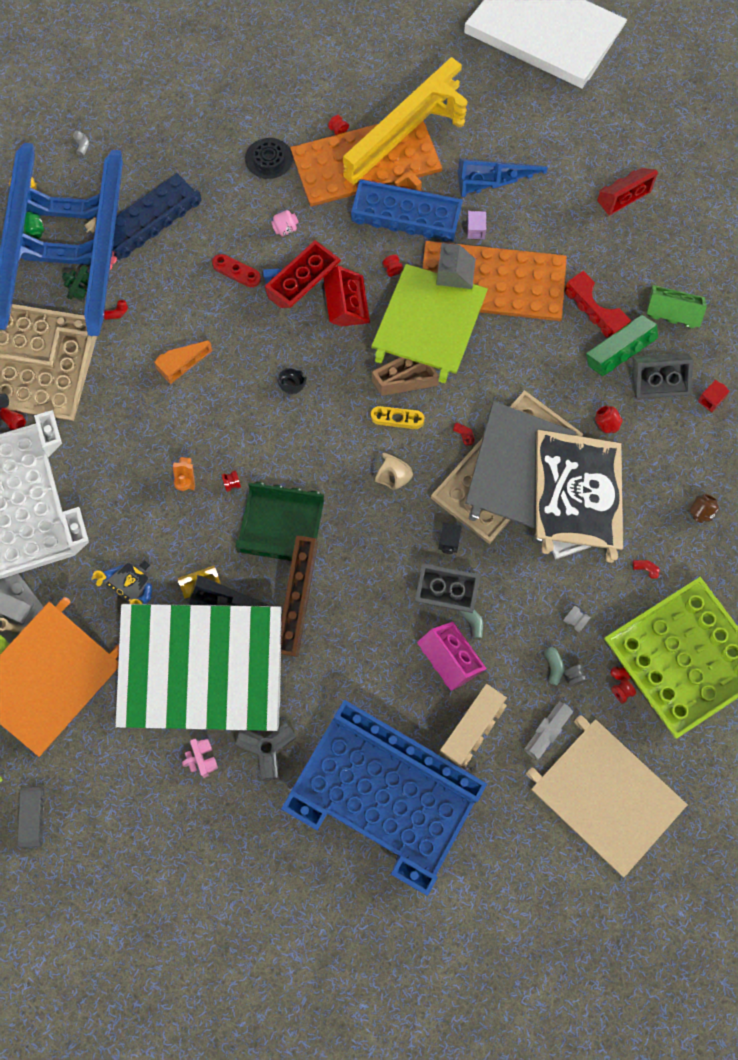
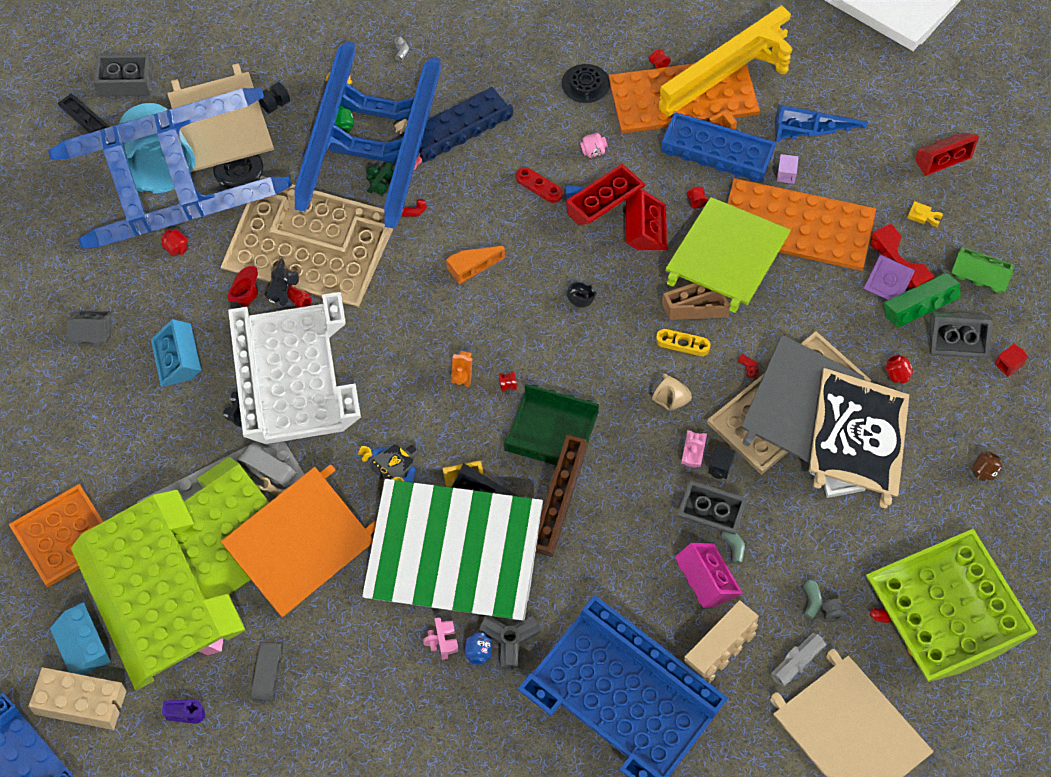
camera: 10 degrees right, 10 degrees down
(237, 764) = (478, 648): none -> blue head
(421, 527) = (694, 449): none -> bright pink hips
(455, 267) = (760, 204): dark grey slope -> none
(577, 619) = (841, 556): light grey wheel -> none
(588, 327) = (889, 278): none -> medium lavender tile
(610, 255) = (922, 213): none -> yellow plate
(623, 690) = (880, 631): red wheel -> none
(648, 566) = (921, 515): red arm -> none

